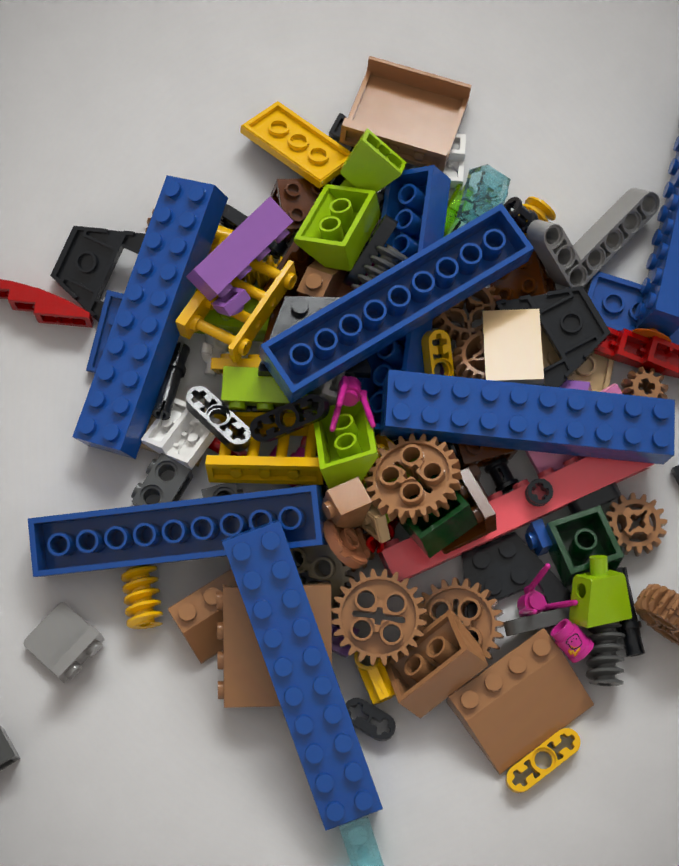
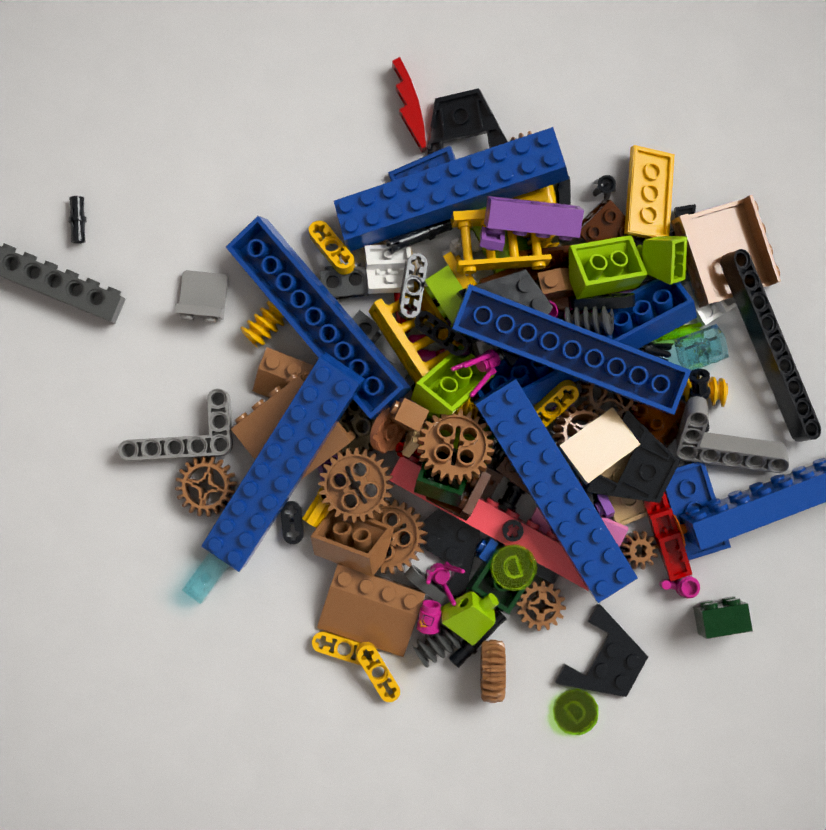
camera: 55 degrees right, 15 degrees up
(106, 469) = (332, 256): none -> yellow beam
(202, 768) = (187, 442): none -> light grey beam
(254, 792) = (186, 482): none -> medium nougat gear
(259, 176) = (606, 185): none -> black piece
(527, 134) = (770, 345): none -> black beam
(578, 517) = (513, 567): none -> clear neon green tile
(604, 733) = (387, 676): none -> yellow beam

